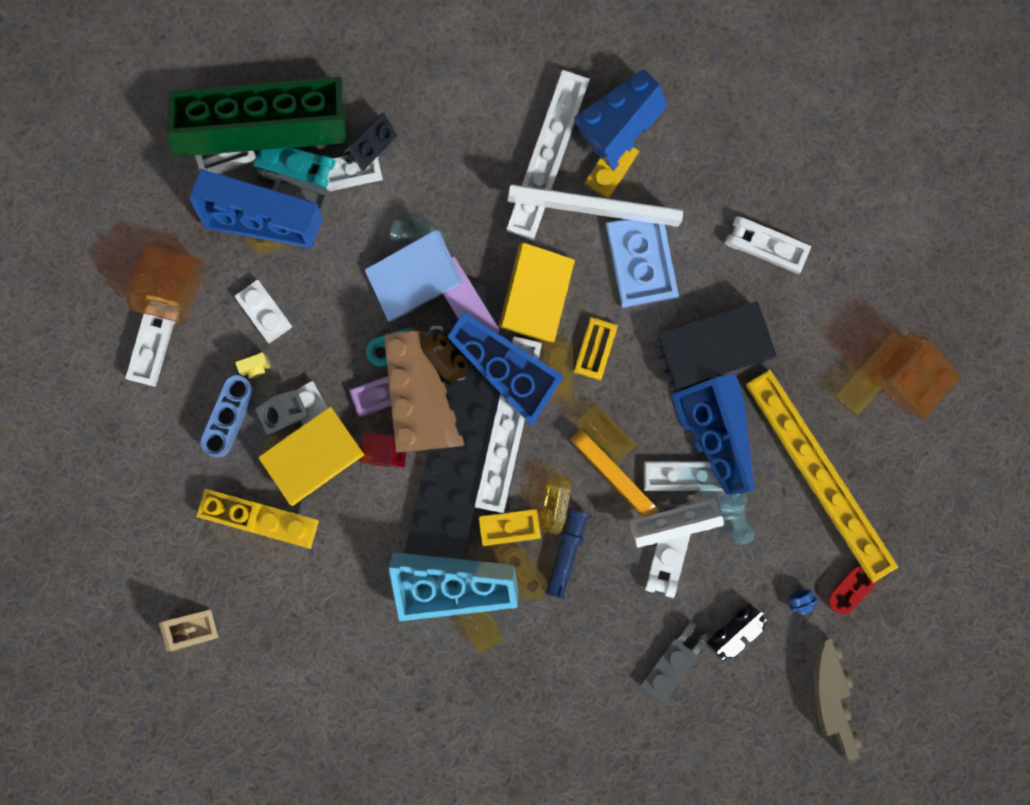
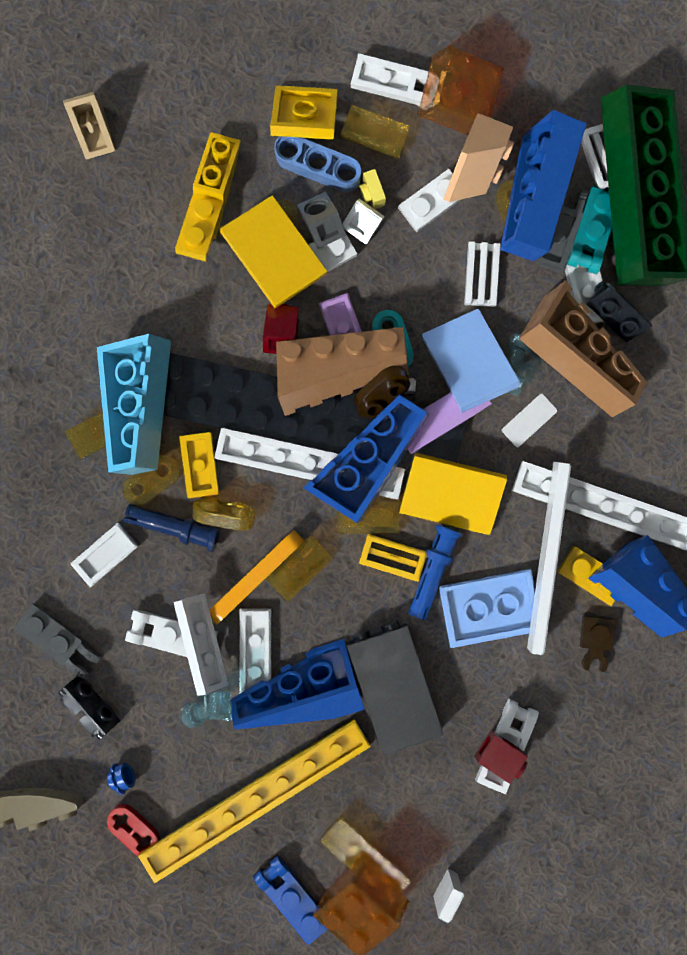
camera: 85 degrees right, 5 degrees up
(180, 428) = (304, 112): none -> yellow tile
(198, 363) = (375, 131): none -> clear yellow plate
(228, 265) = (480, 159): none -> light nougat slope
(282, 375) = (362, 221): none -> white tile
(307, 275) = (483, 248): none -> white tile
(407, 175) = (582, 352): none -> medium nougat wedge
(468, 224) = (529, 420): none -> white sticker
(594, 618) = (104, 554): none -> white tile
(596, 306) = (438, 558): none -> blue pin
(666, 163) = (597, 636): none -> dark brown plate
(776, 248) = (501, 757): none -> dark red brick
(903, 297) = (448, 896): none -> white tile
(913, 441) = (291, 899): none -> blue plate

